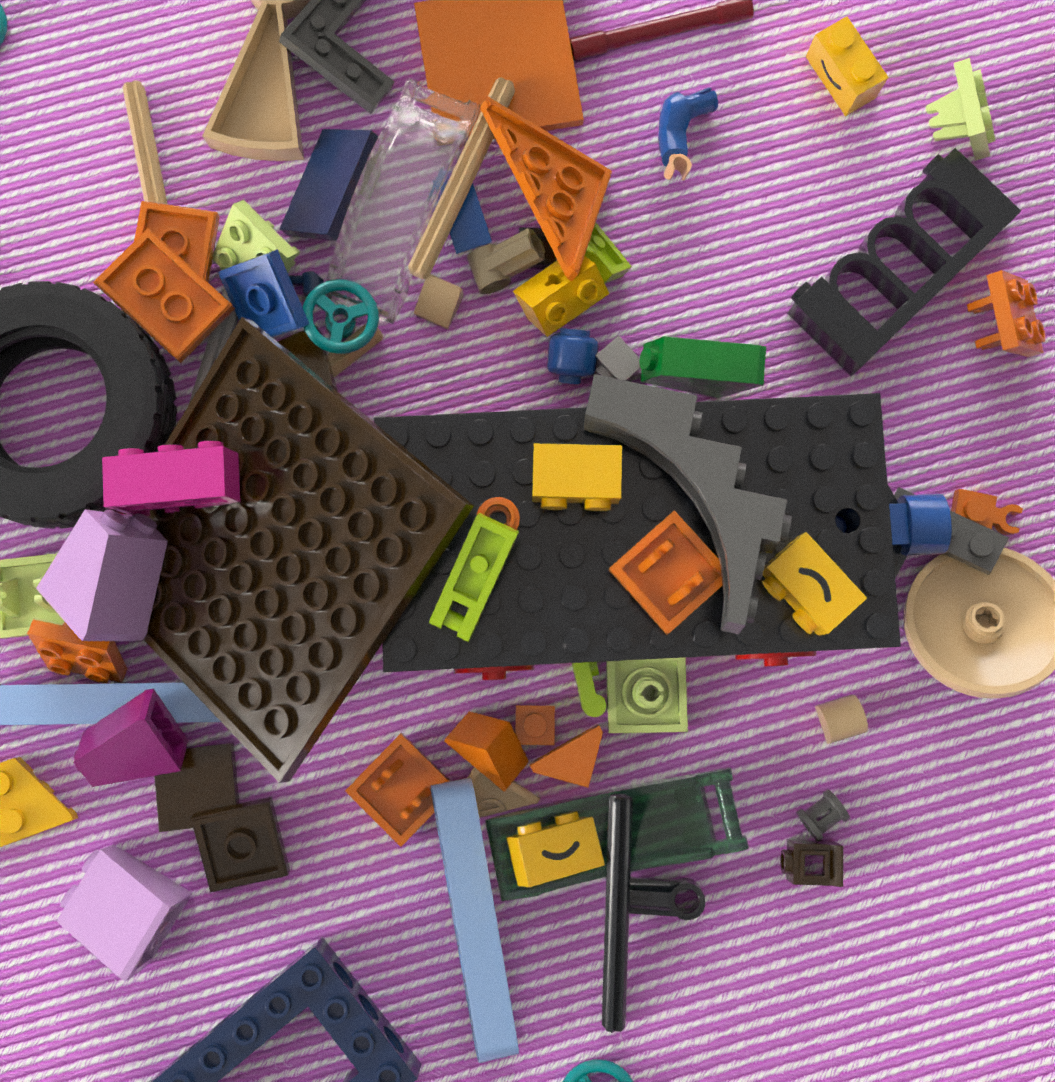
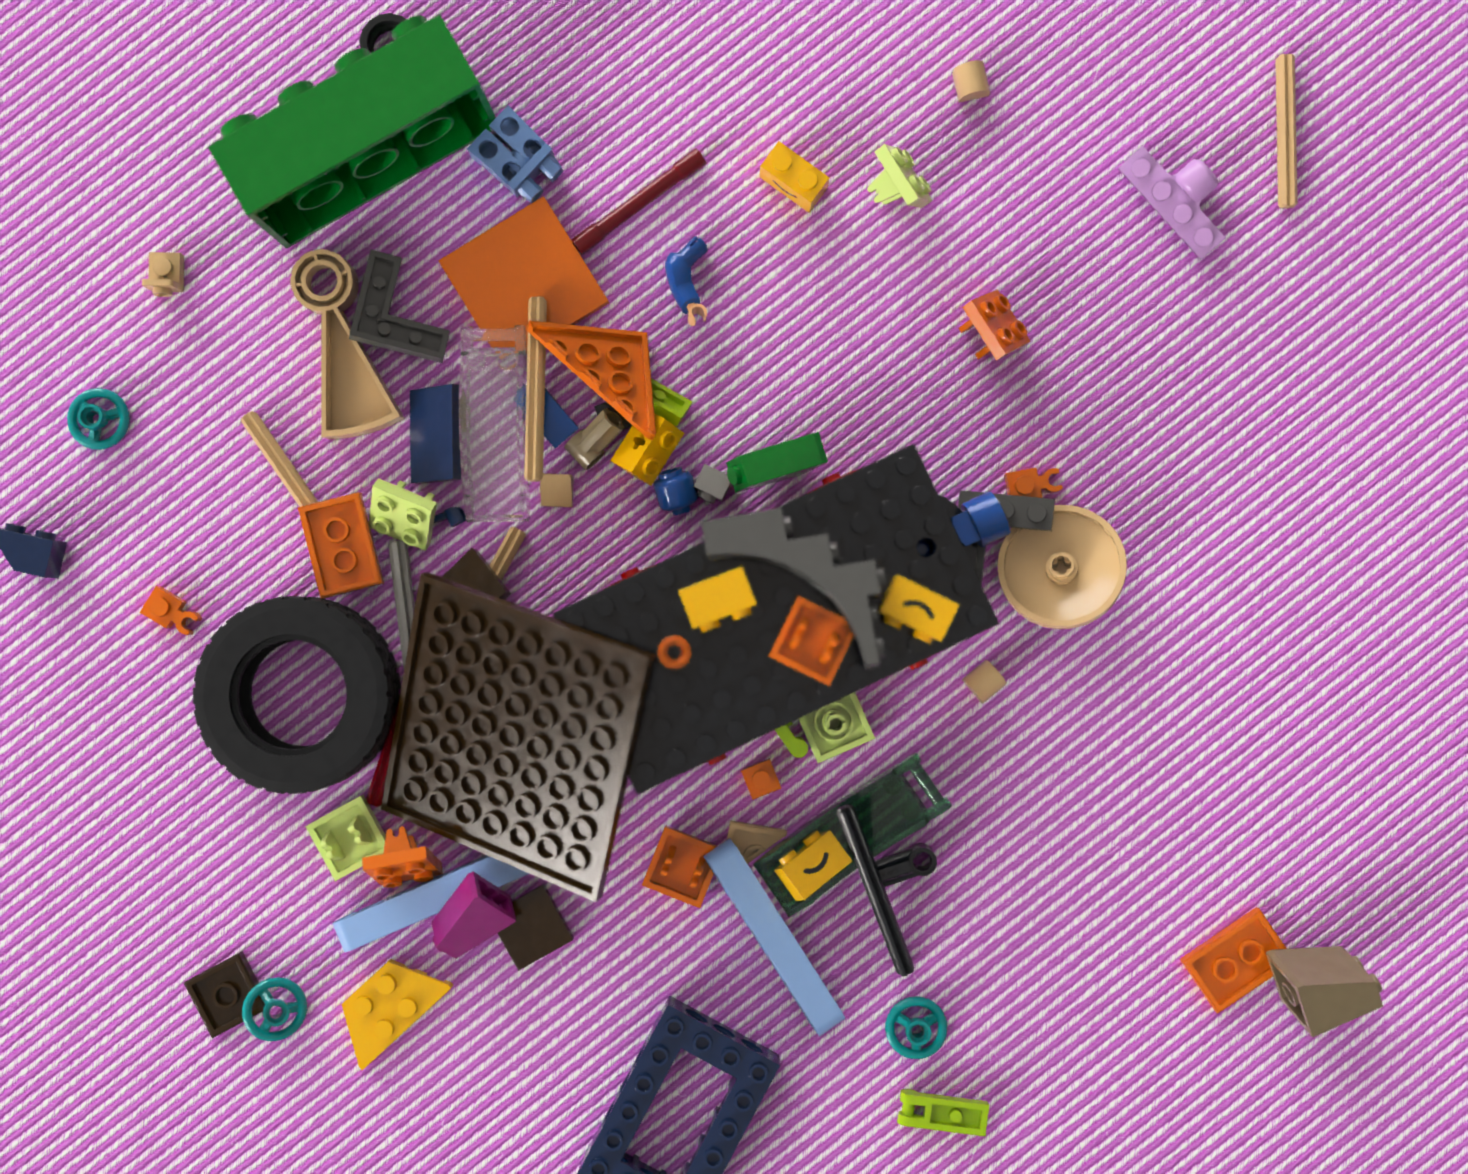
camera: 25 degrees left, 5 degrees up
(106, 576) = (403, 805): lavender slope -> none
(122, 910) = (516, 1036): lavender slope -> none
(164, 295) = (348, 574): orange tile -> none
(171, 478) = (421, 715): dark pink wedge -> none
(240, 844) = (582, 954): dark brown tile -> none
(264, 294) = (424, 544): blue tile -> none
(341, 330) = (505, 519): teal piece -> none
(474, 575) = (674, 701): lime plate -> none
(489, 747) = (734, 809): orange slope -> none
(571, 760) = (798, 794): orange slope -> none
(793, 862) = (1018, 793): dark brown window -> none
(828, 802) = (998, 746): dark grey bush -> none
(965, 199) = (926, 245): black fence -> none

